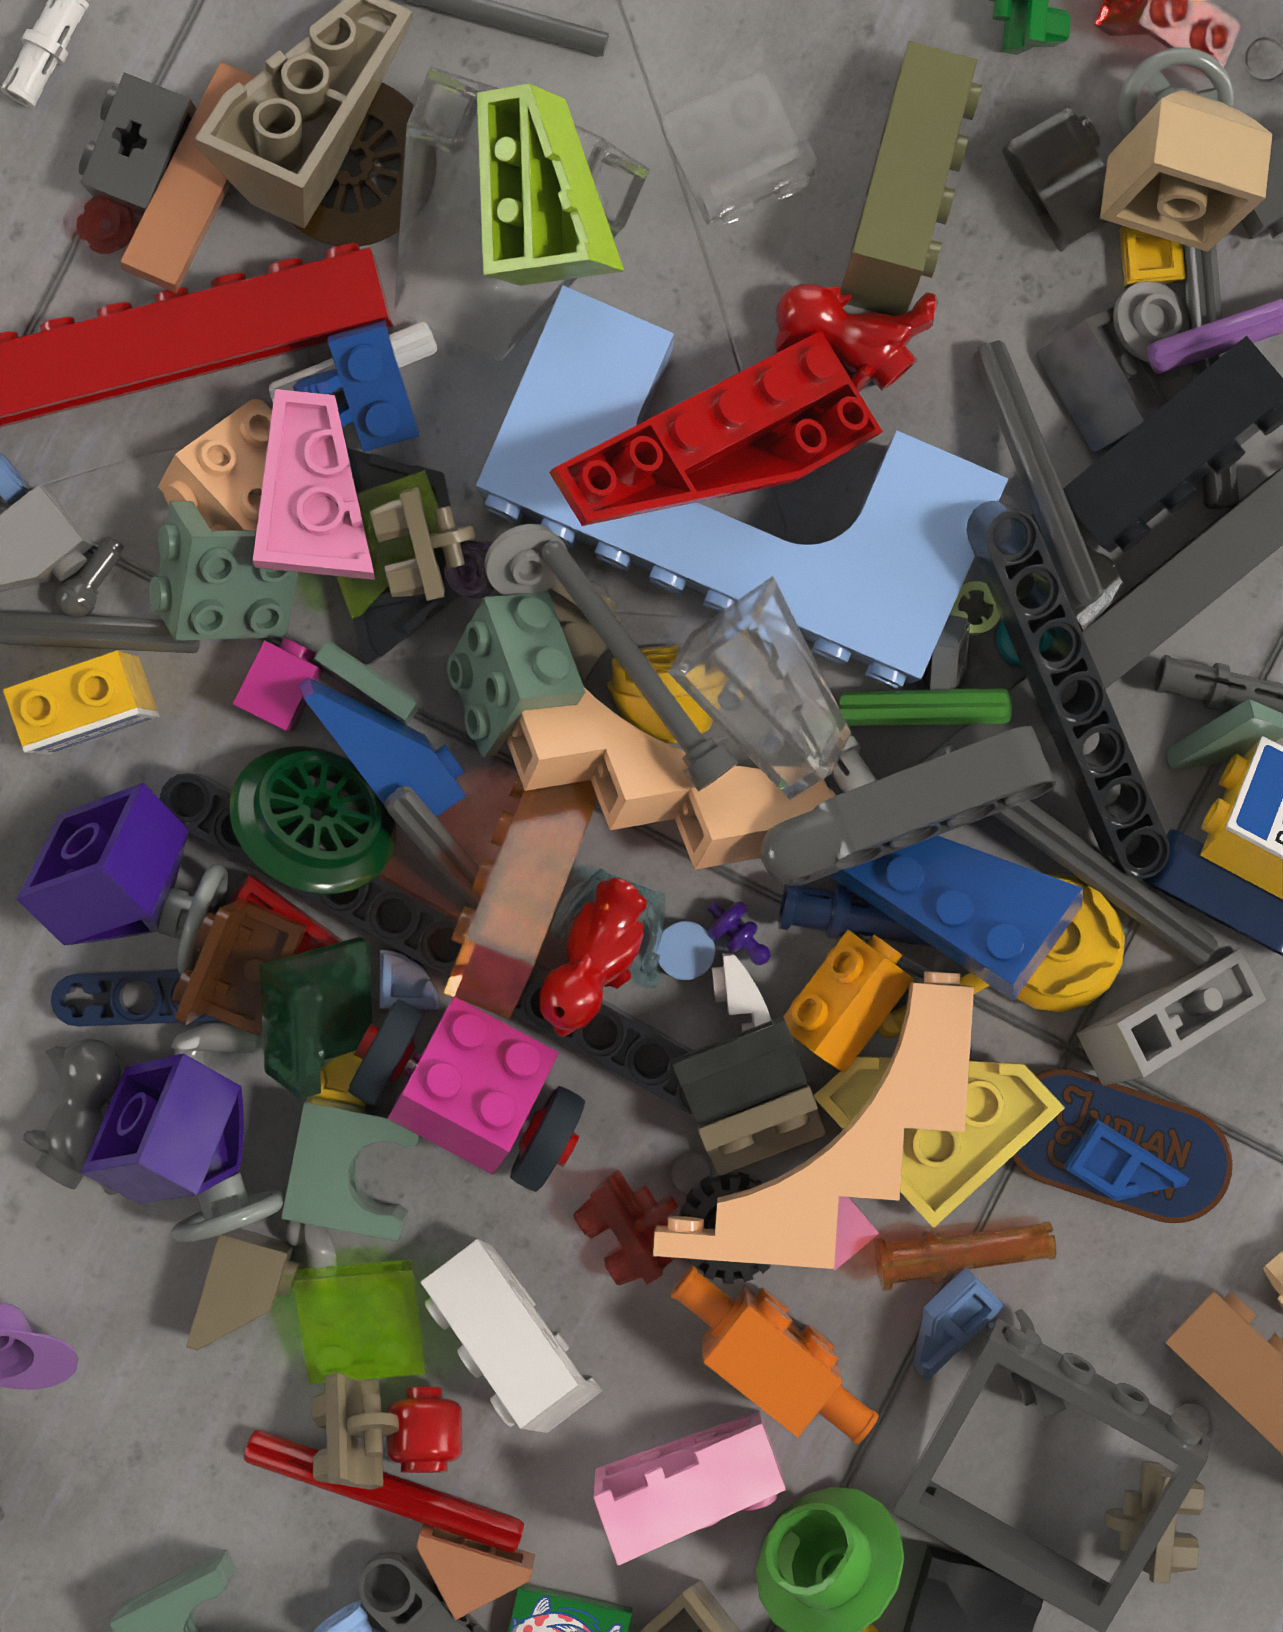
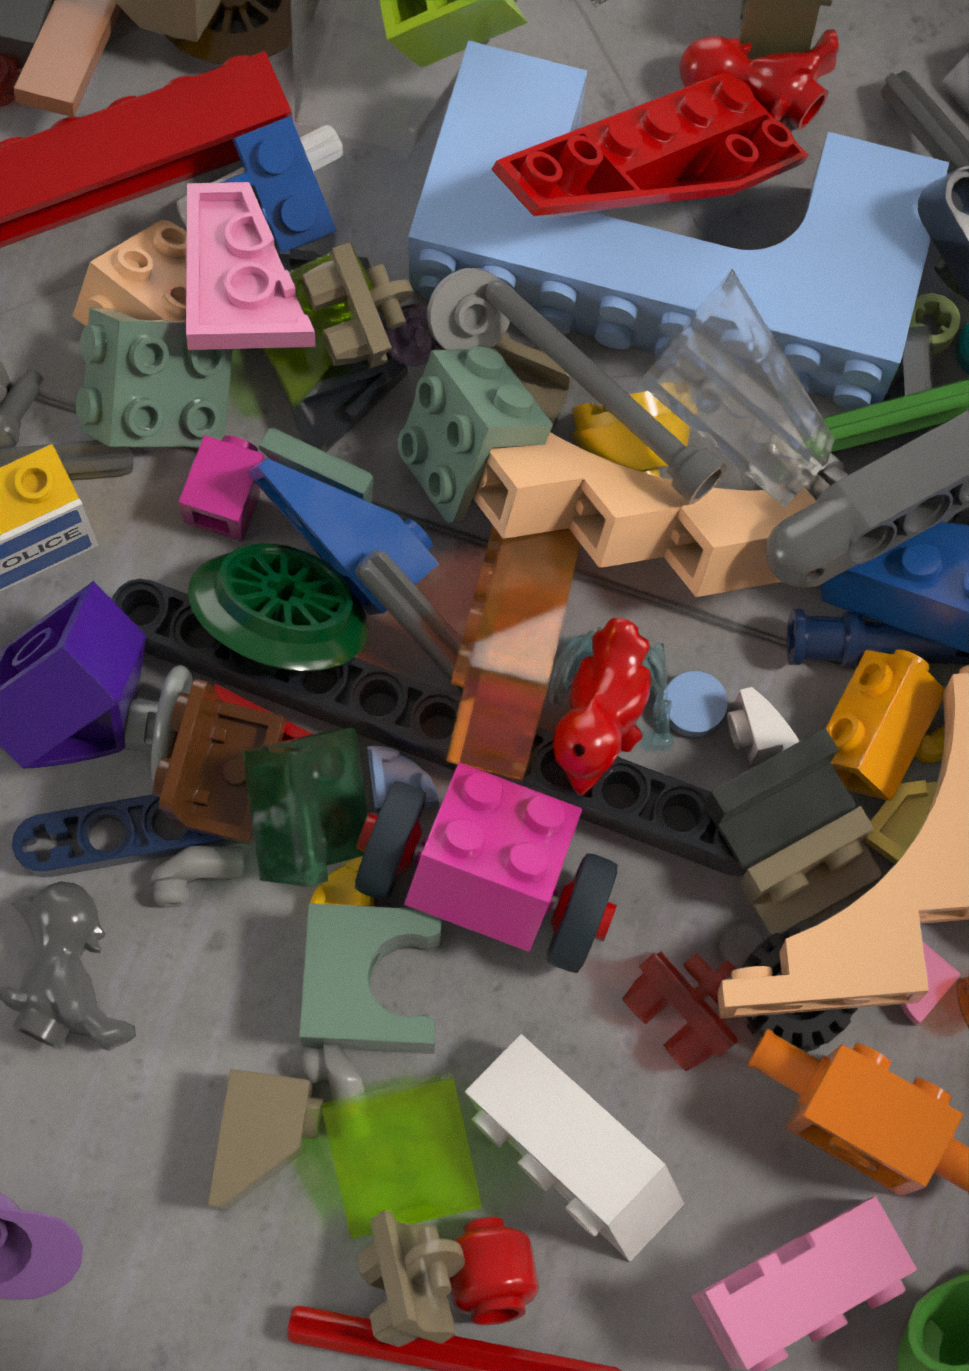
camera: 15 degrees left, 15 degrees down
(175, 1136) = (171, 958): dark purple piece -> none
(740, 934) = (736, 668): dark purple hair -> none

